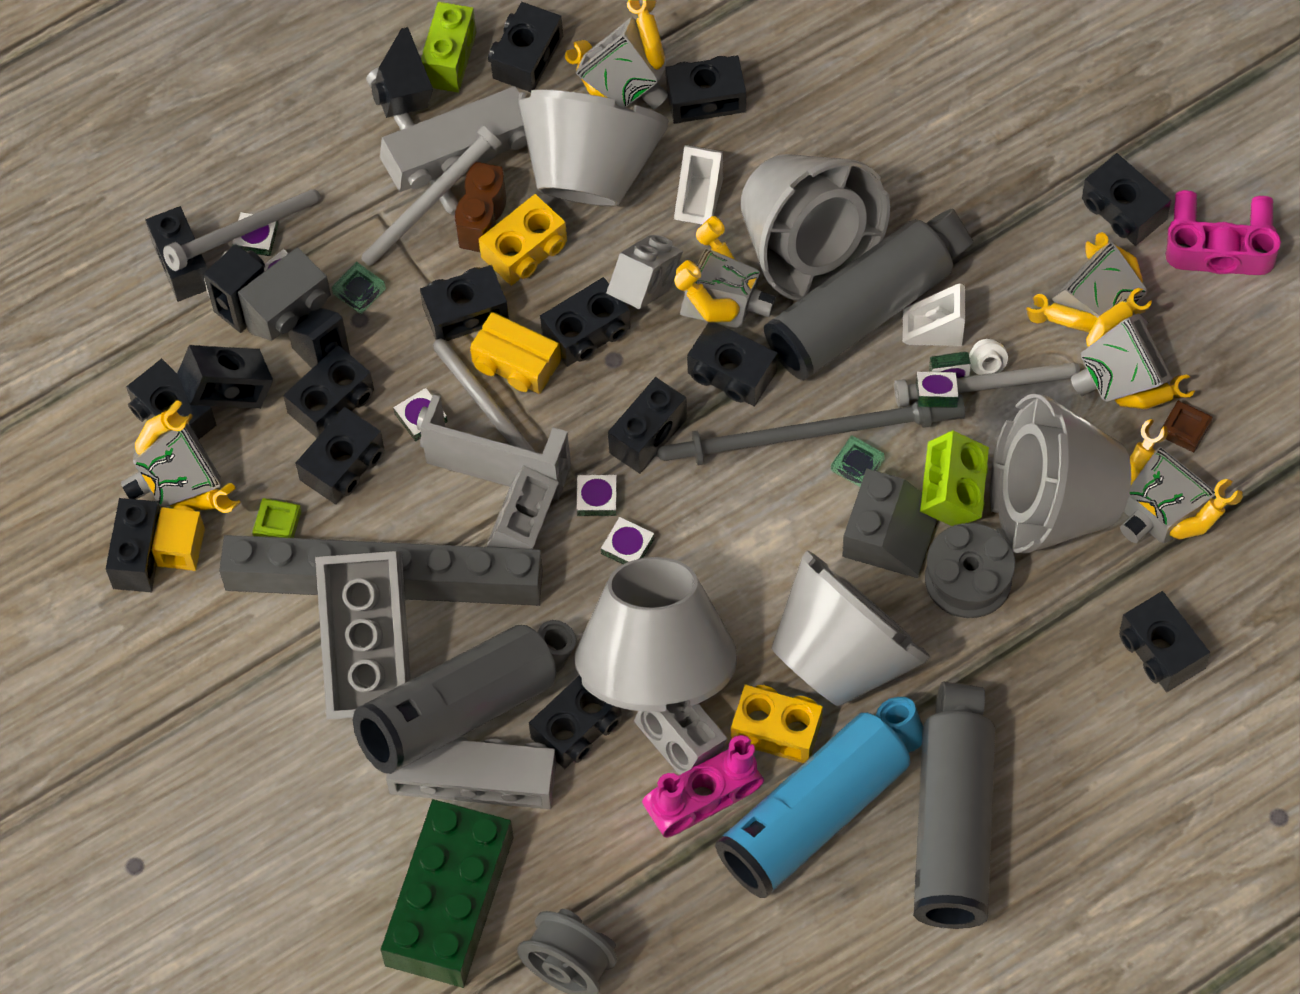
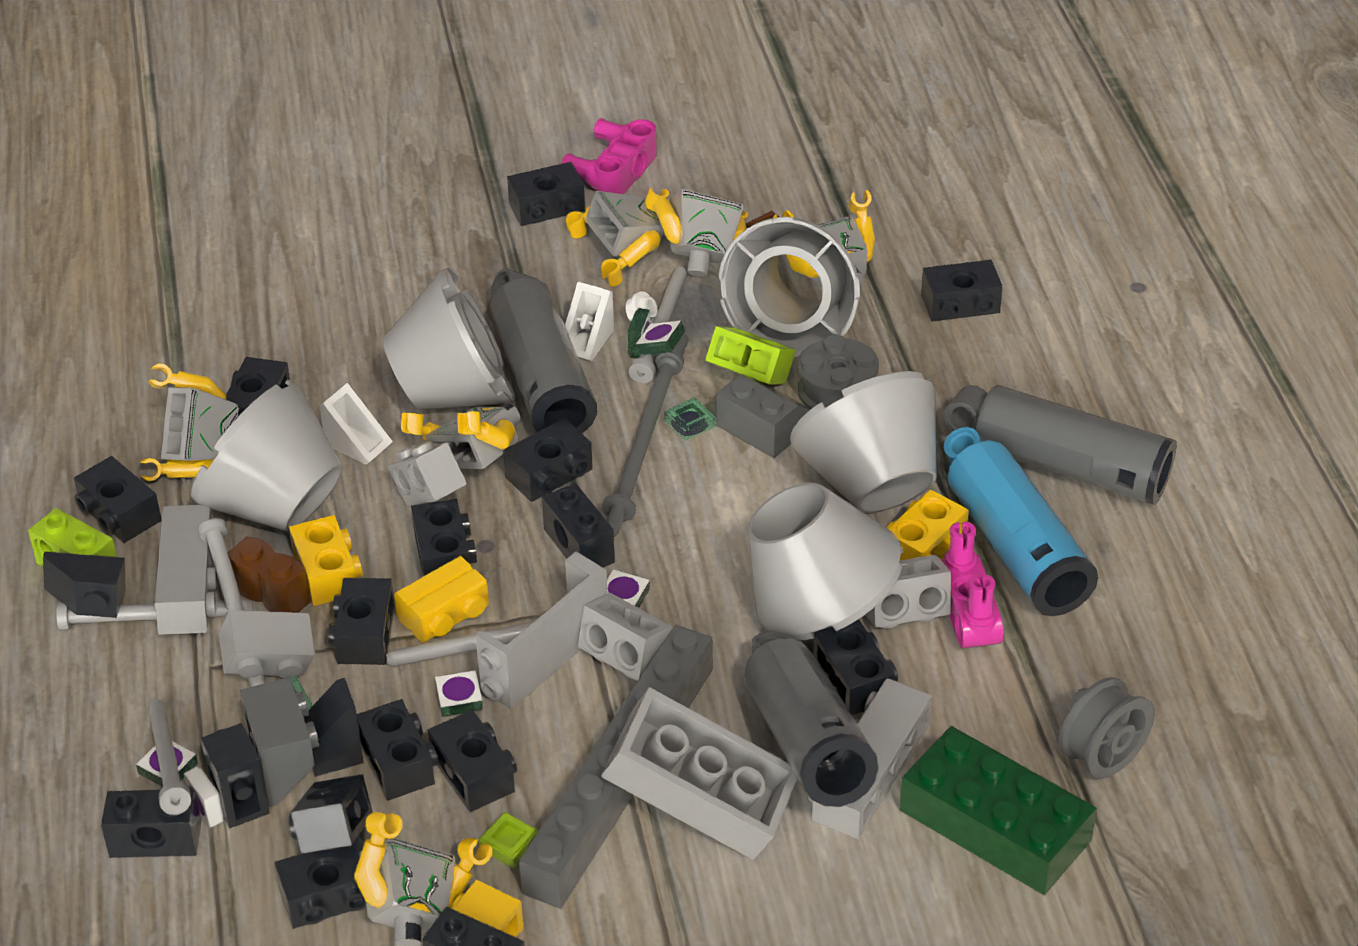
camera: 70 degrees left, 20 degrees down
(391, 243) = (266, 643): none -> light grey brick
(627, 542) = (686, 586): tile -> none

